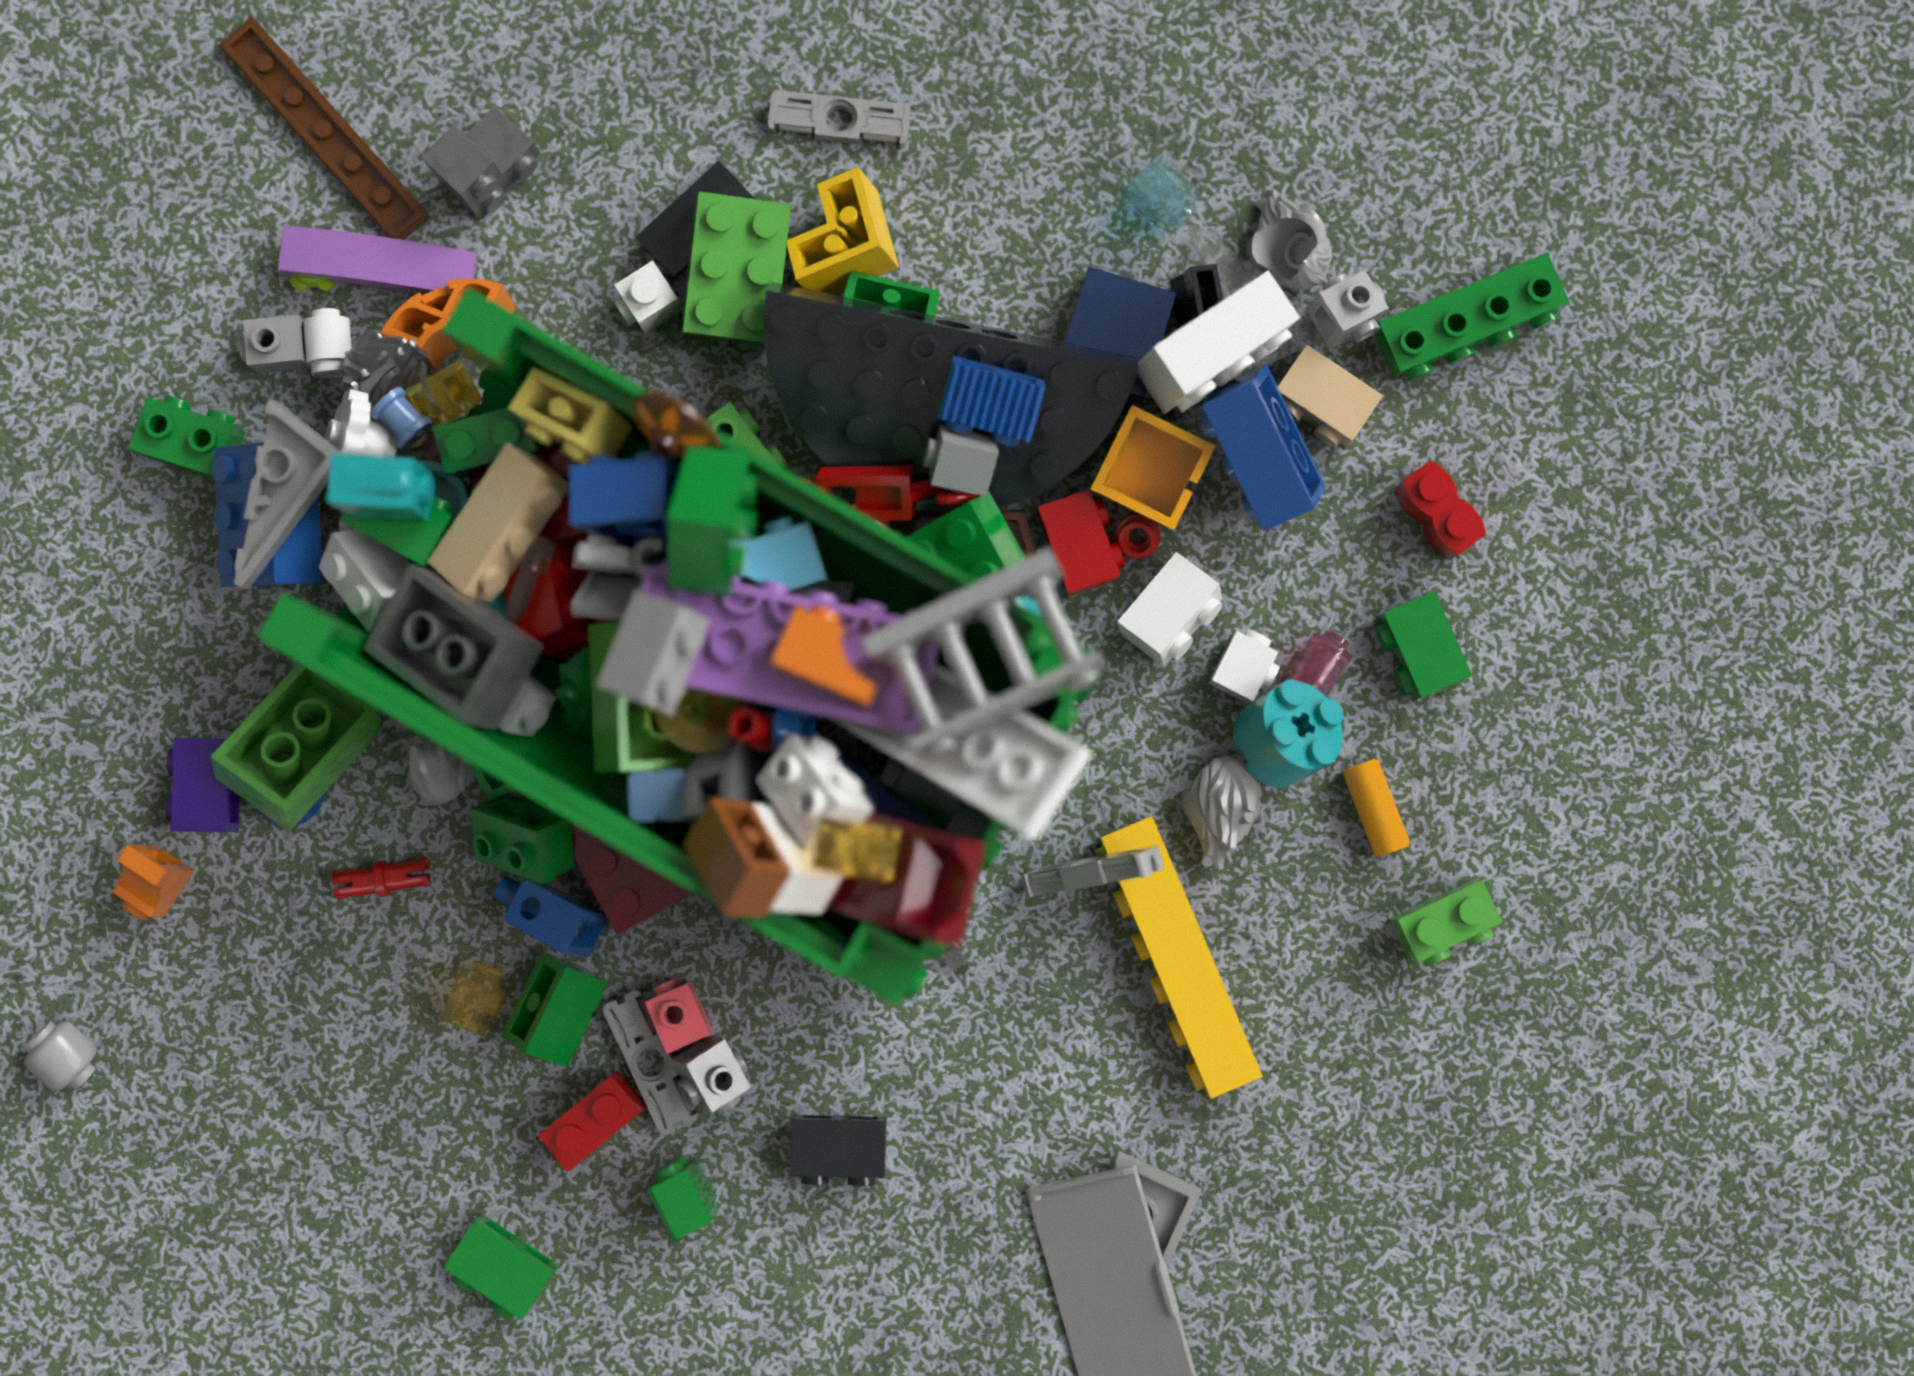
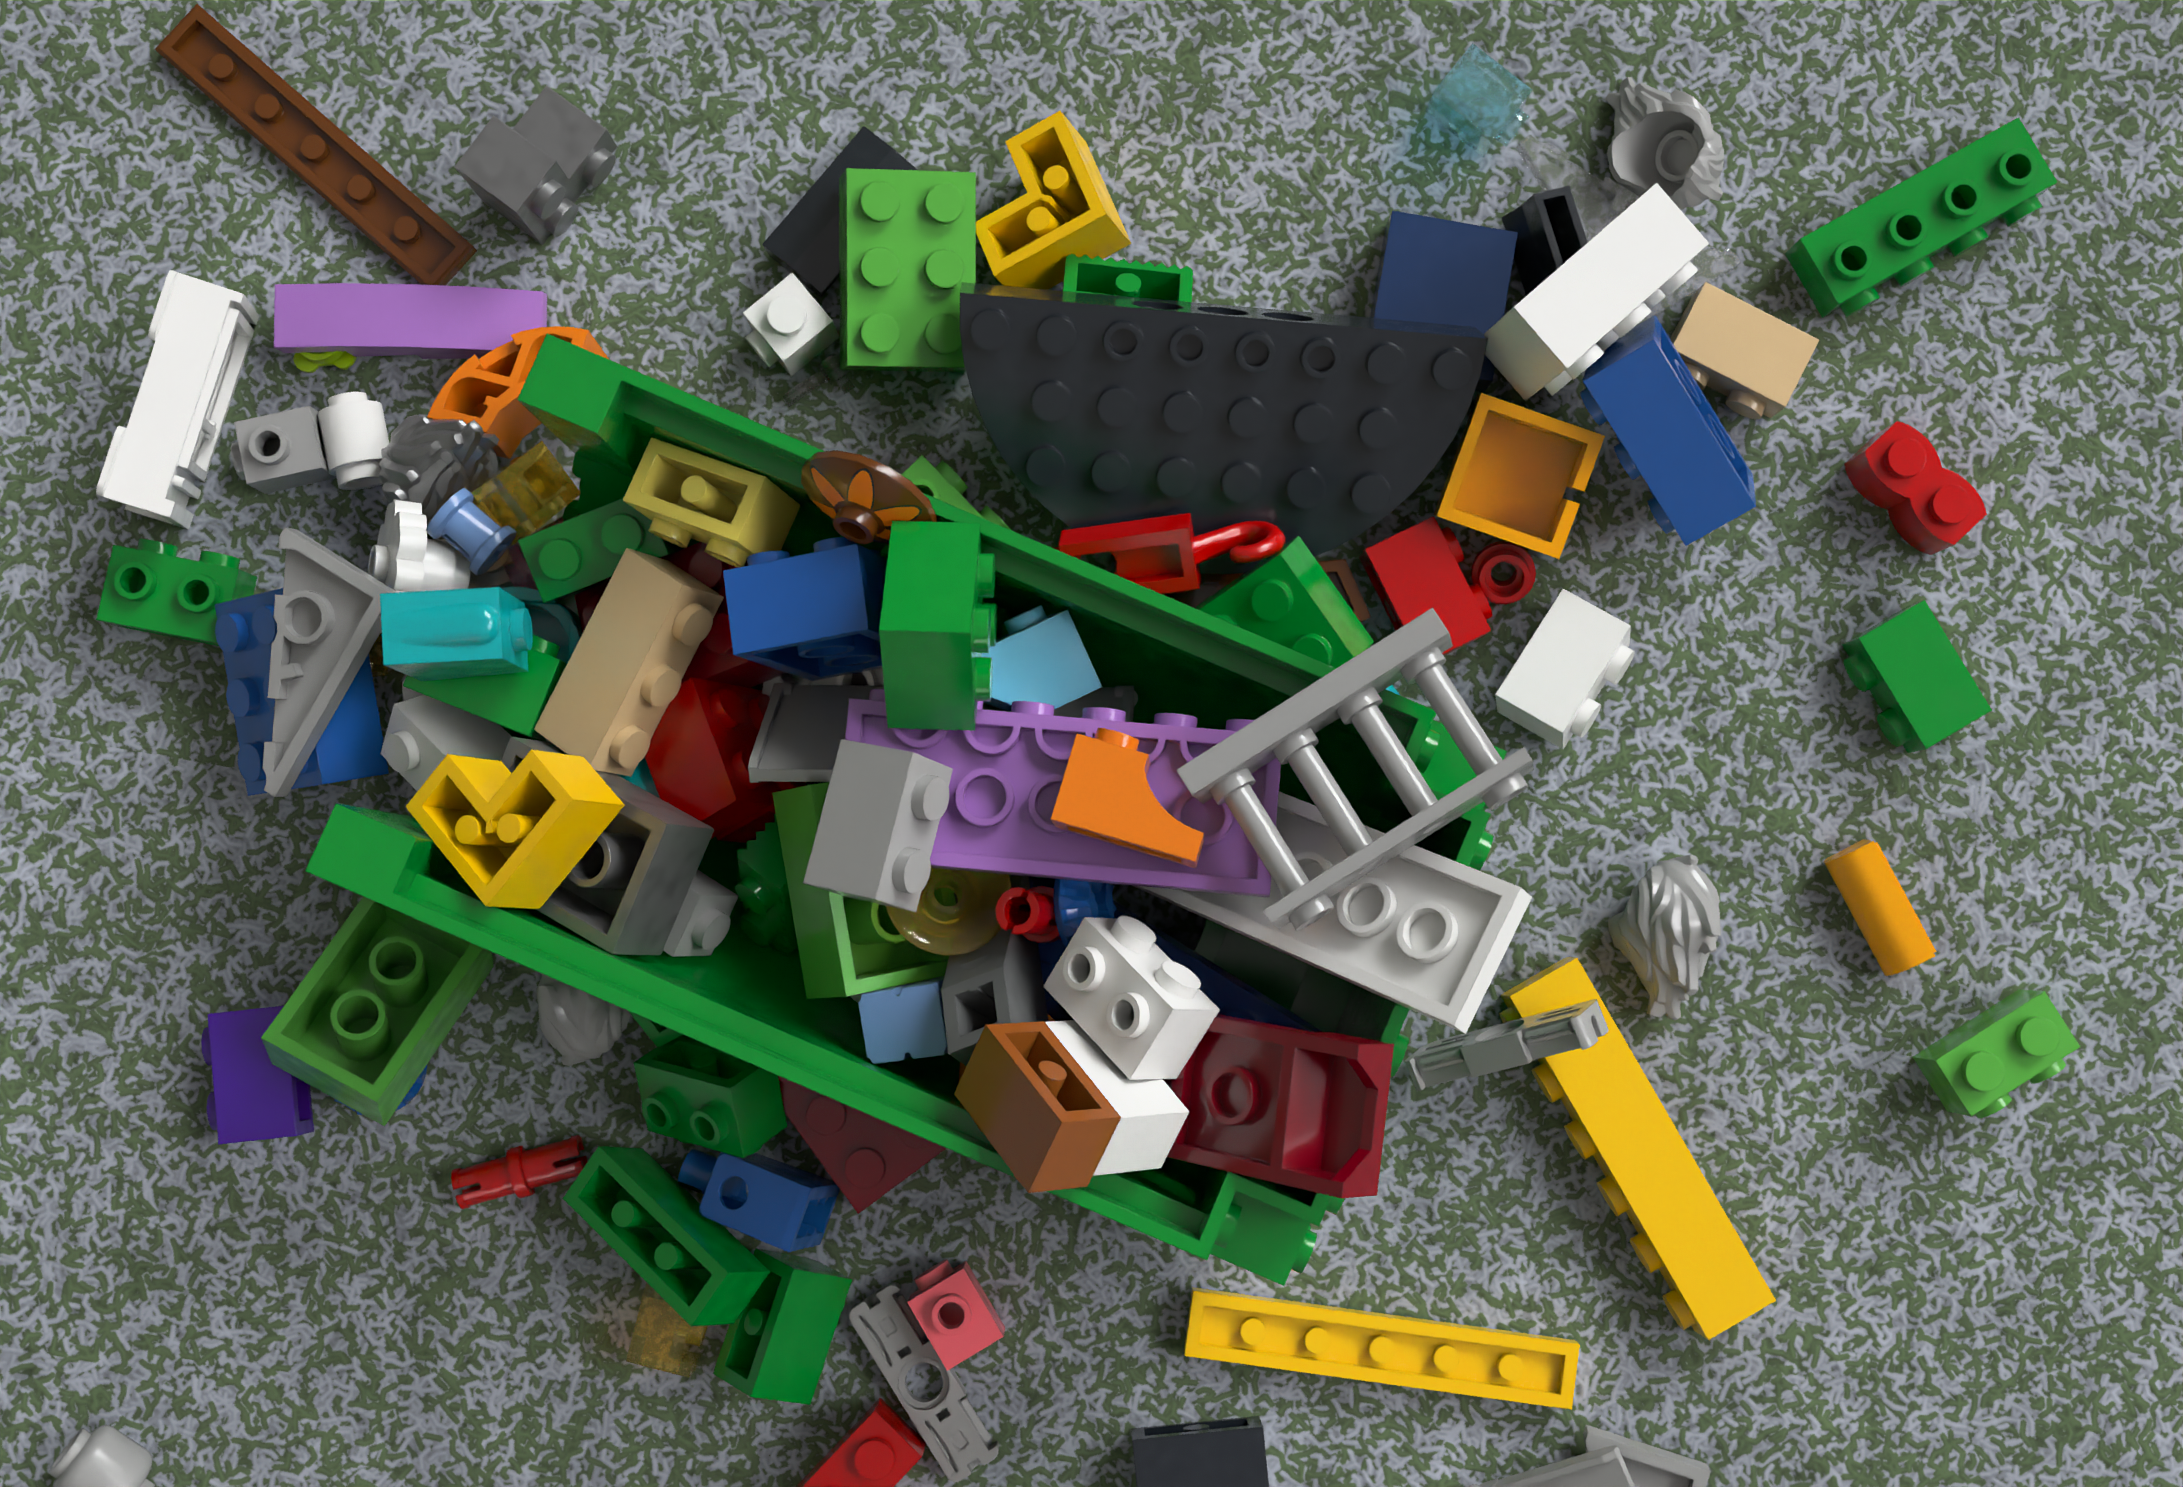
camera: 10 degrees left, 0 degrees up
(150, 880) = (198, 1215): orange arch -> none
(207, 301) = (182, 399): none -> white piece
(405, 628) = (518, 829): none -> yellow brick
(477, 934) = (664, 1237): none -> green brick
(532, 565) = (683, 714): clear smoke piece -> none
(604, 555) = (782, 691): white plate -> none
(711, 1075) = (1012, 1391): light grey brick -> none
(810, 112) = (980, 45): light grey piece -> none
(855, 848) = (1205, 1073): clear yellow brick -> none
(961, 460) = (1260, 497): light grey brick -> none
(979, 1078) = (1381, 1348): none -> yellow plate
(990, 401) = (1292, 410): blue brick -> none
(1245, 666) = (1675, 734): white brick -> none
(1289, 733) = (1751, 821): teal brick -> none
(1322, 661) = (1777, 719): clear pink brick -> none
(1348, 309) = (1756, 226): light grey brick -> none

